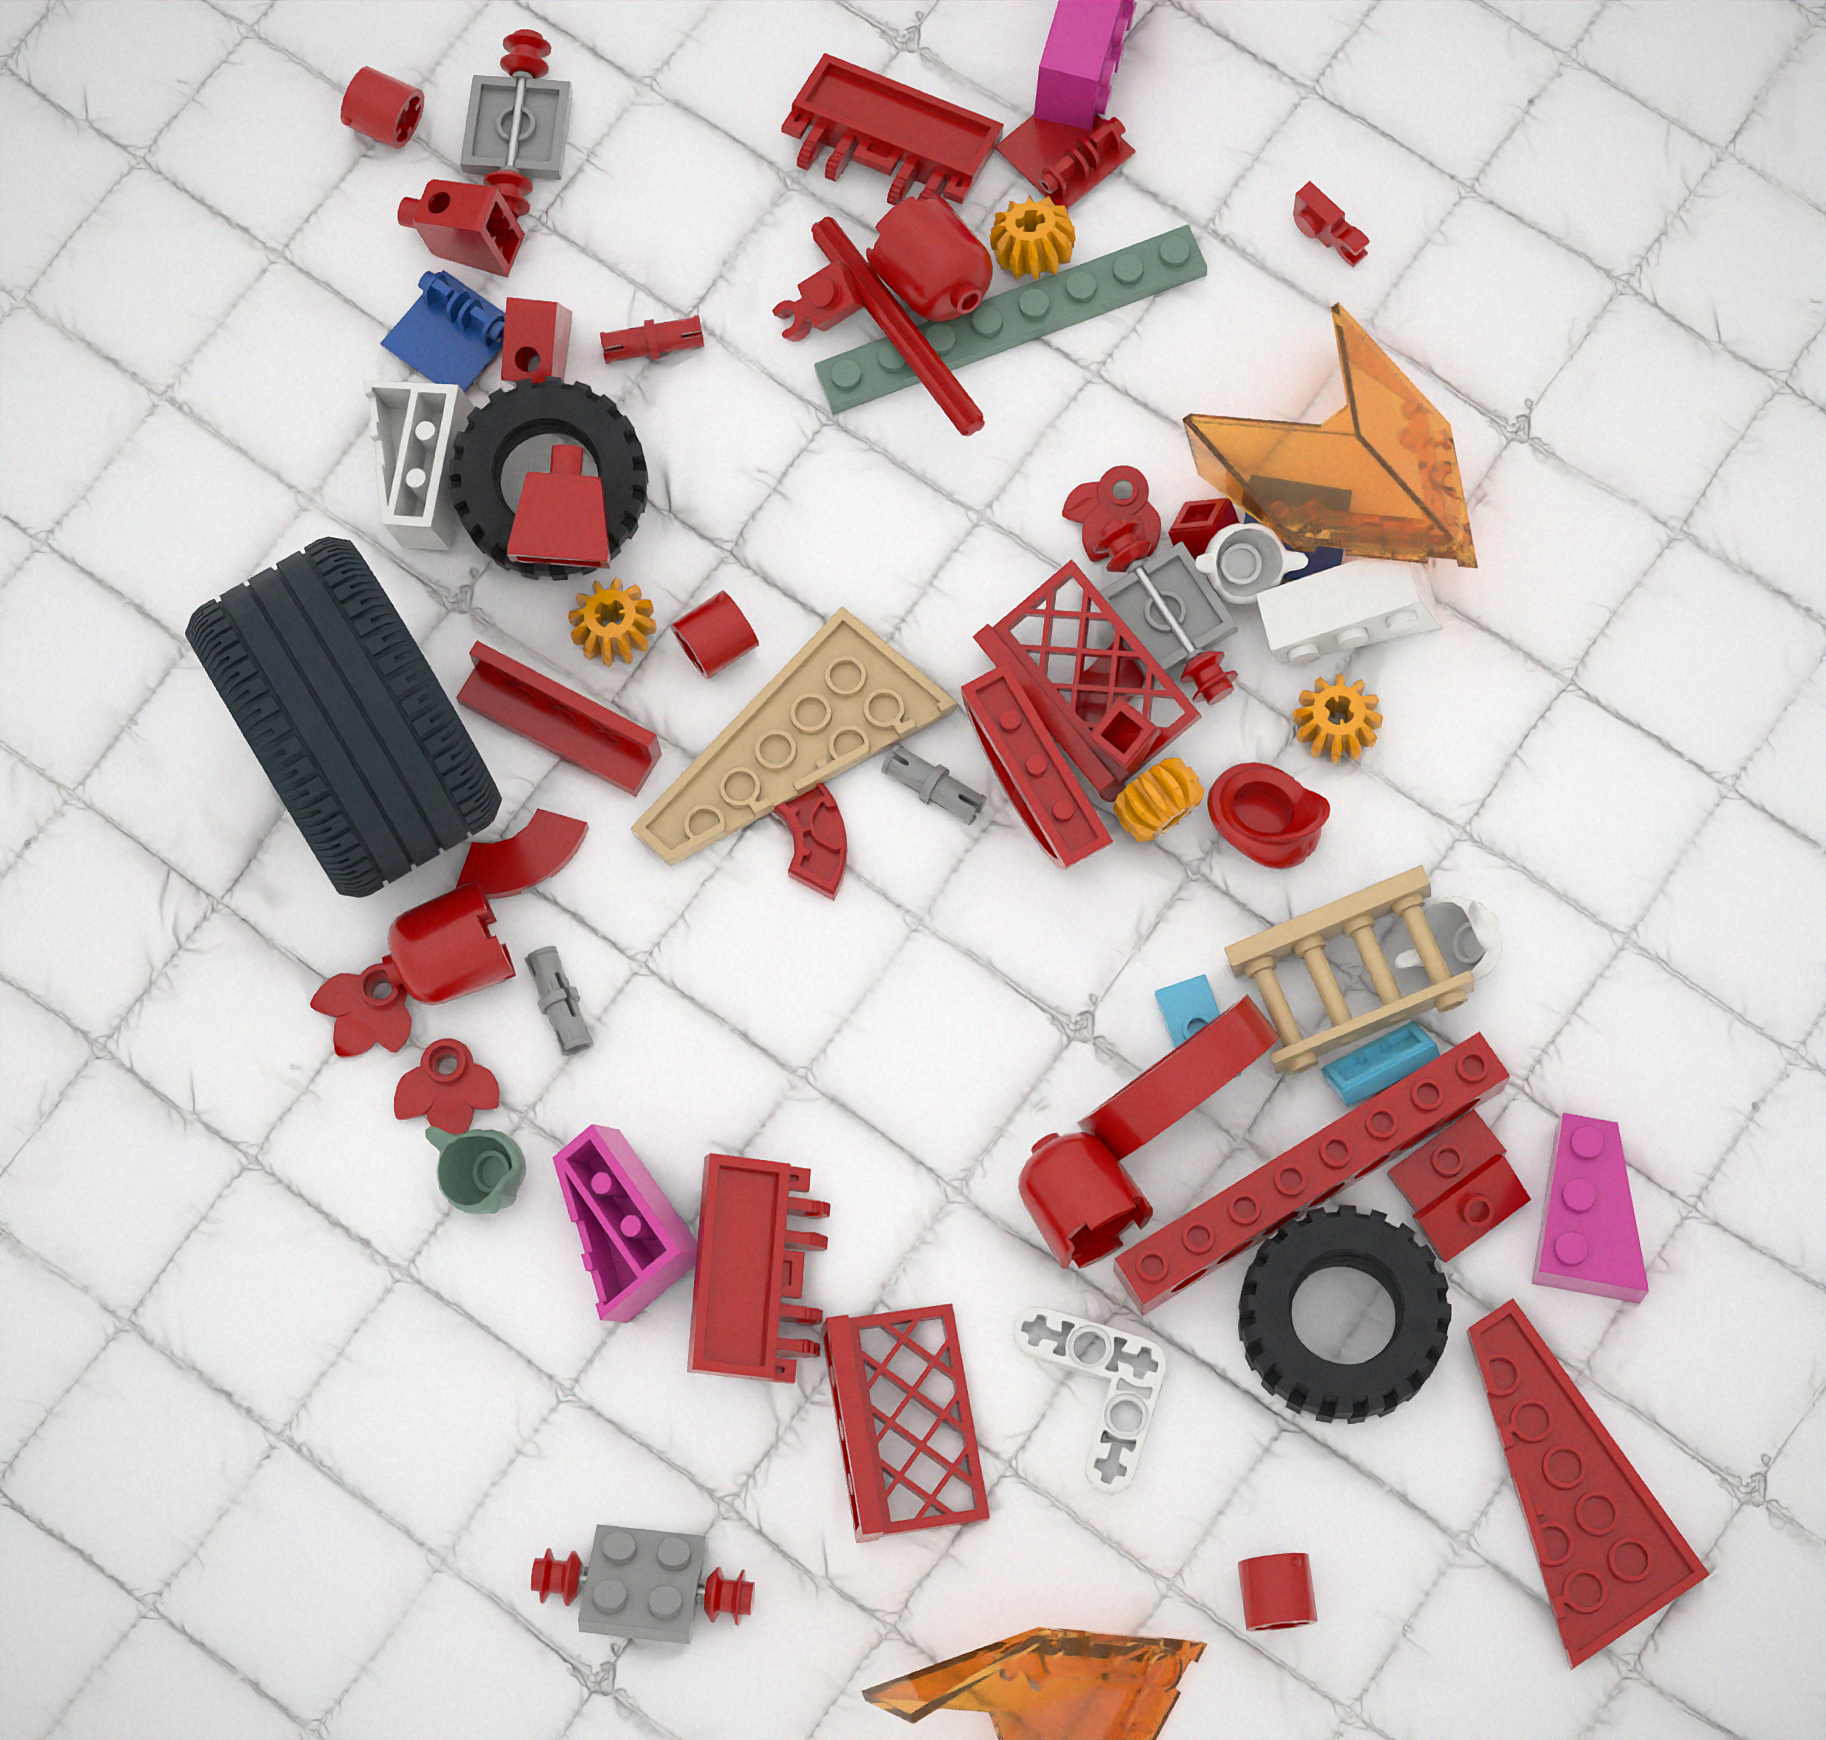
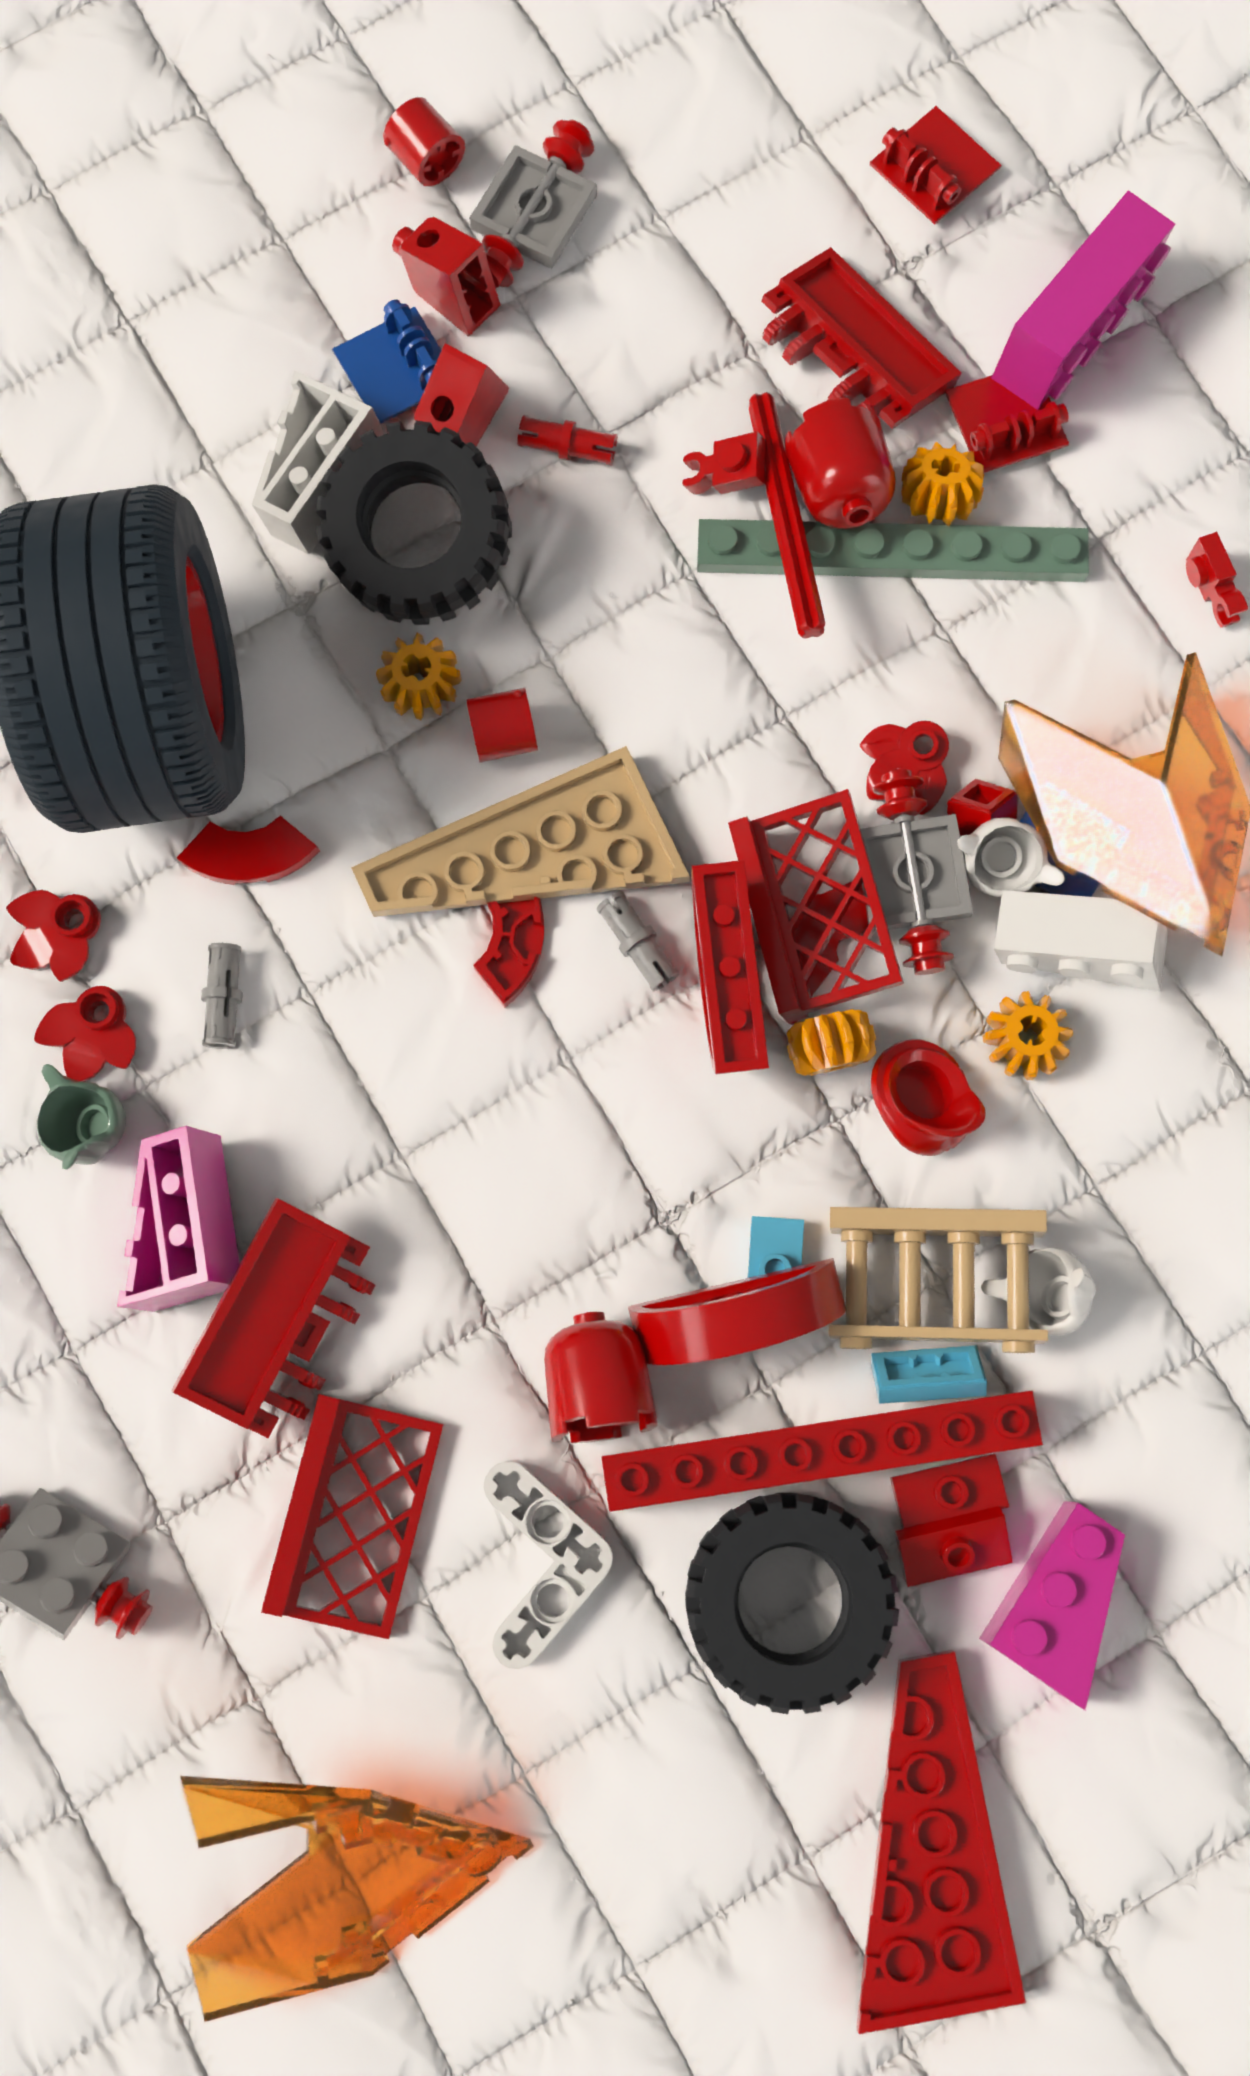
camera: 20 degrees right, 5 degrees up
(447, 948) = (142, 908): red cylinder -> none
(559, 720) = (334, 745): red fence -> none
(561, 515) = (401, 558): red torso -> none
(1124, 735) = (824, 972): red slope -> none
(1277, 1592) = (615, 1835): red piece -> none

